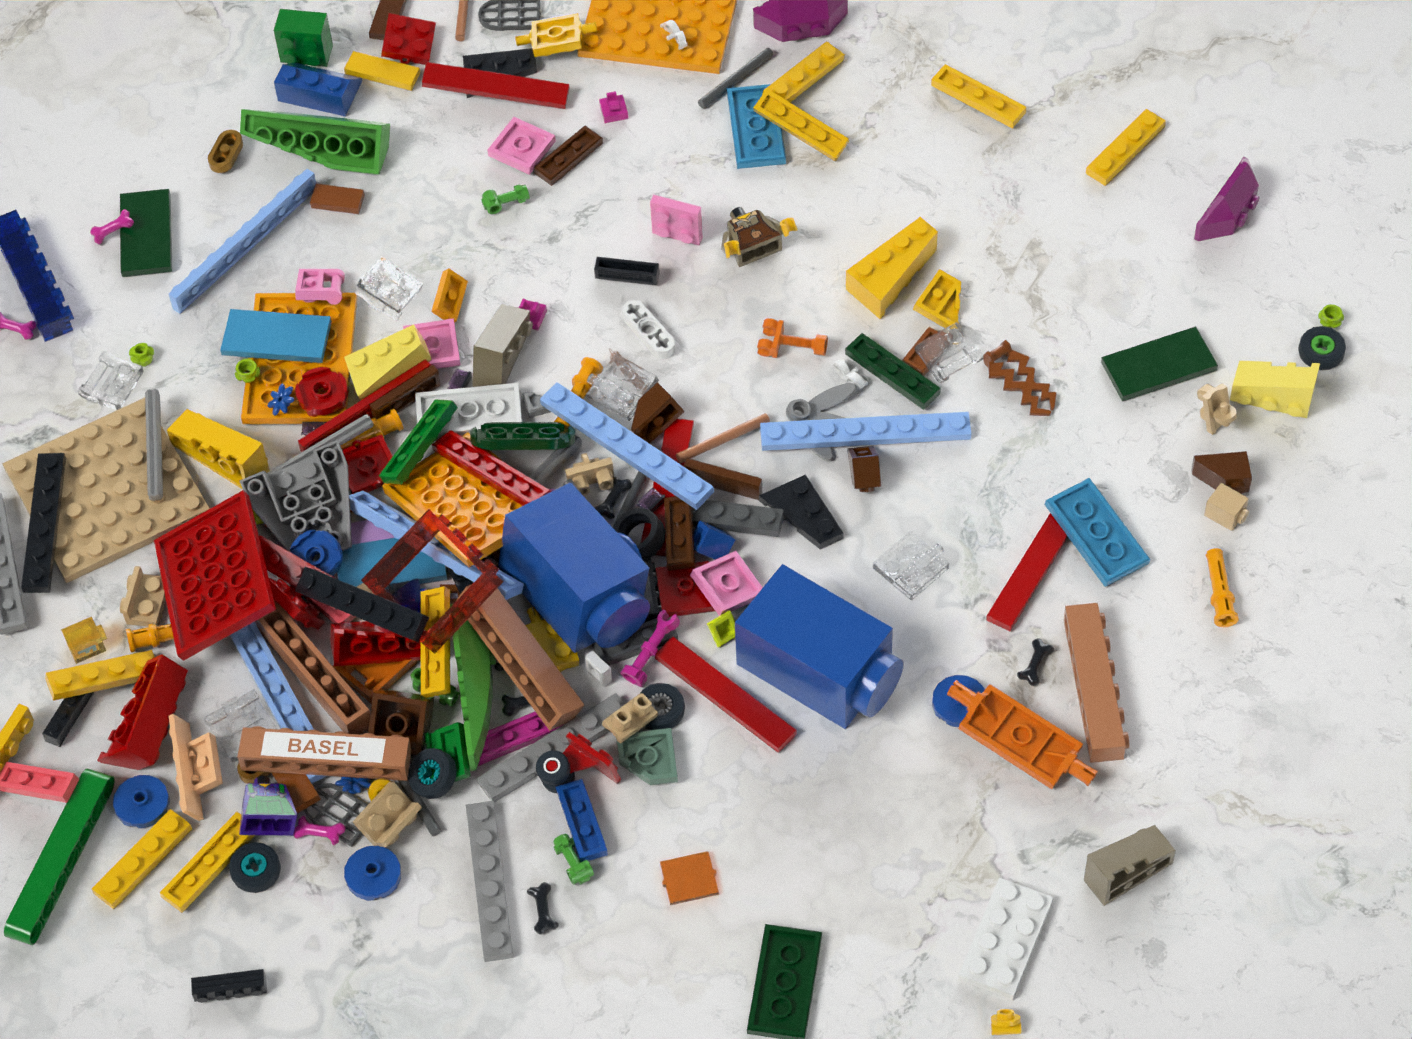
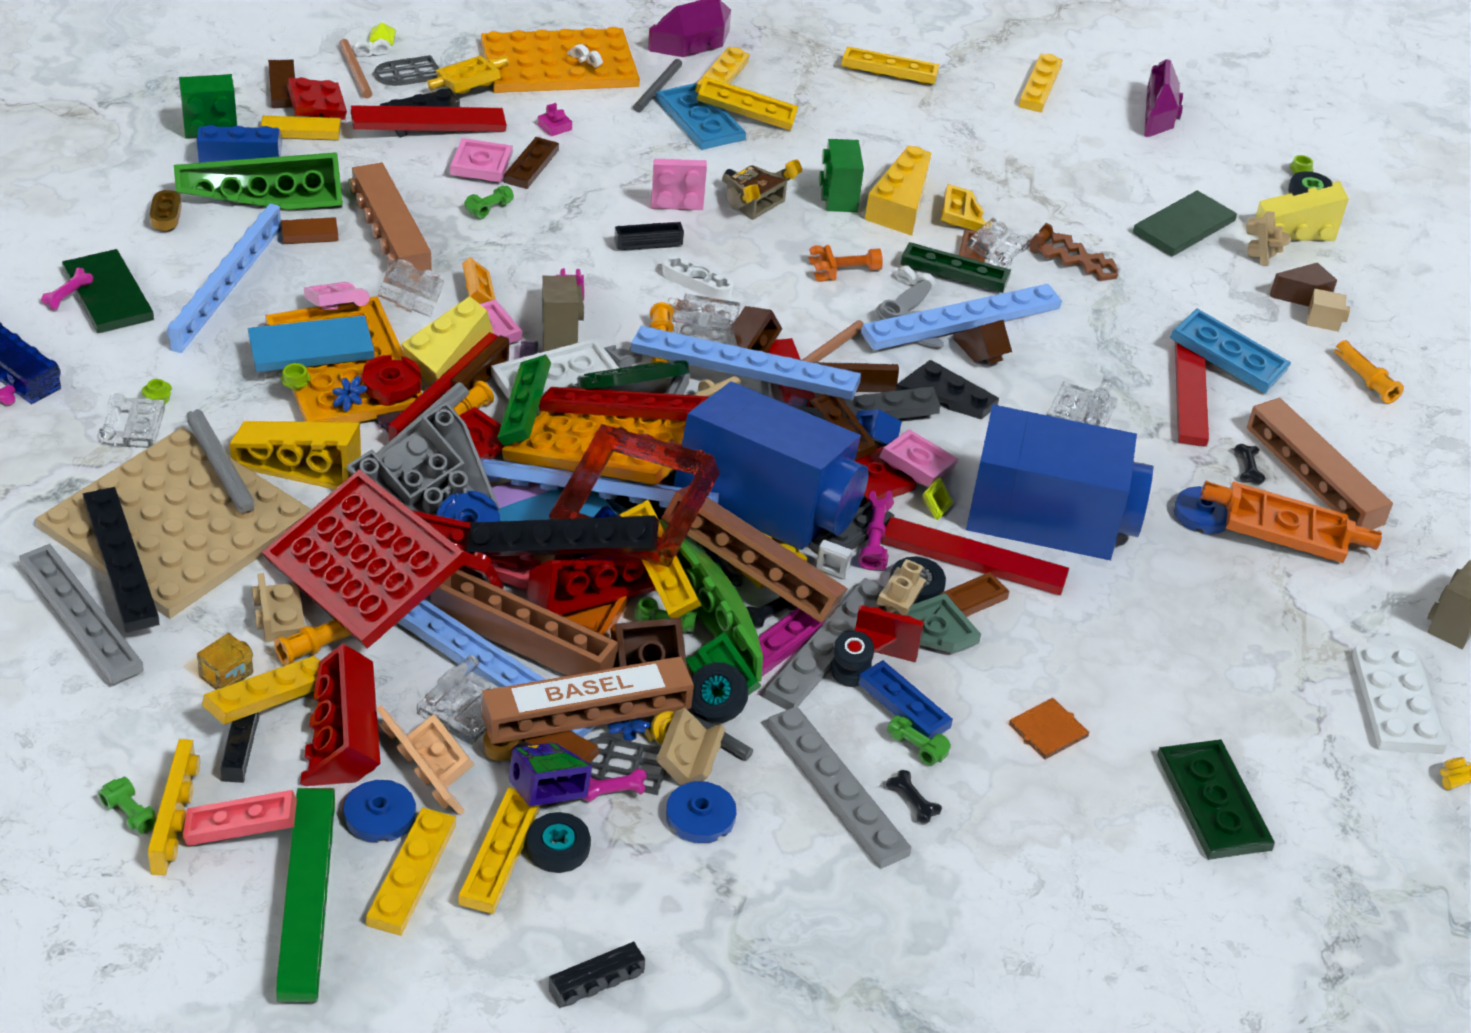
camera: 30 degrees left, 15 degrees down
(407, 204) = (389, 216): none -> nougat brick
(701, 734) = (978, 594): none -> dark orange tile
(836, 240) = (841, 175): none -> green brick

